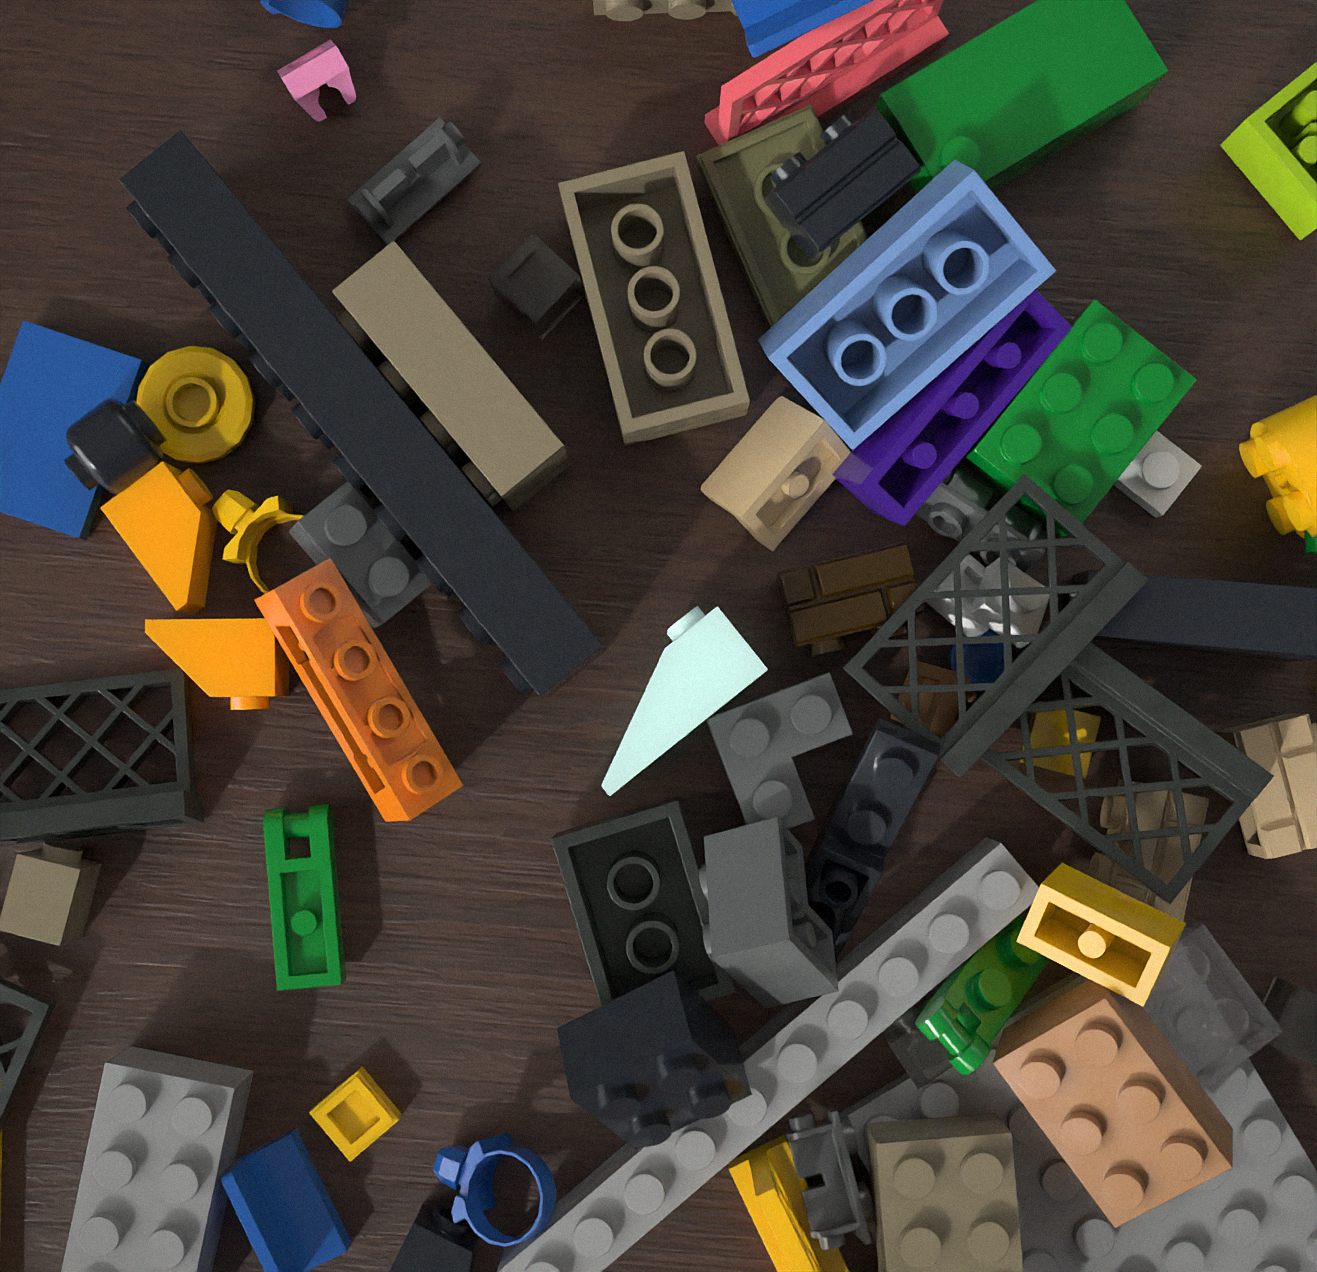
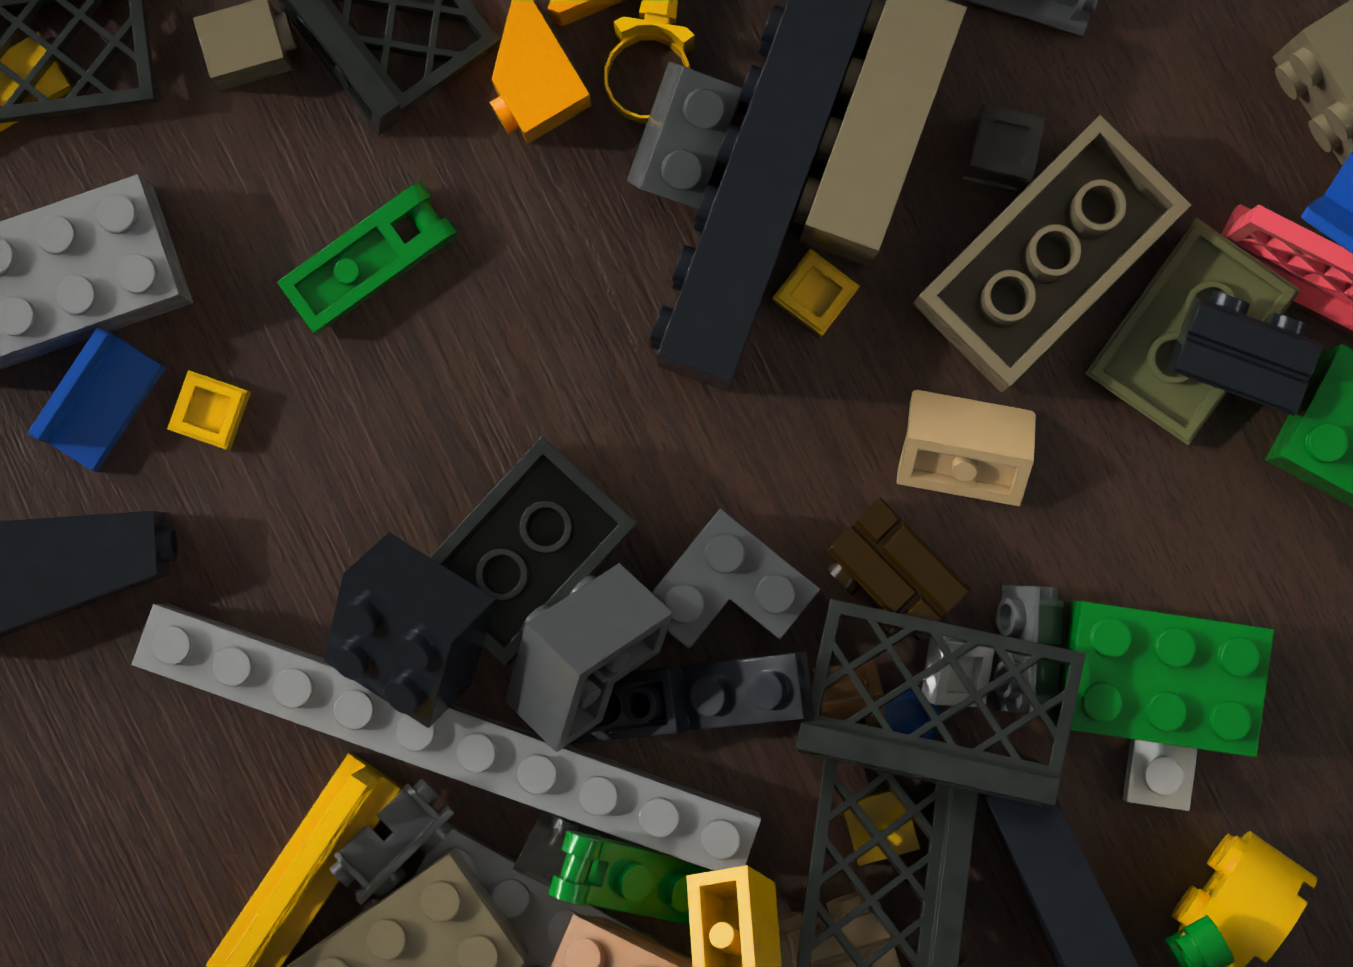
camera: 55 degrees right, 0 degrees up
(359, 692) = (569, 202): orange brick -> none
(473, 1174) = (216, 540): blue piece -> none
(566, 523) = (815, 293): none -> yellow tile
(691, 682) = (740, 475): light aqua slope -> none
(906, 303) = (1169, 469): medium blue brick -> none
(938, 426) = (1115, 560): dark purple brick -> none
(1025, 610) = (970, 726): white plate -> none

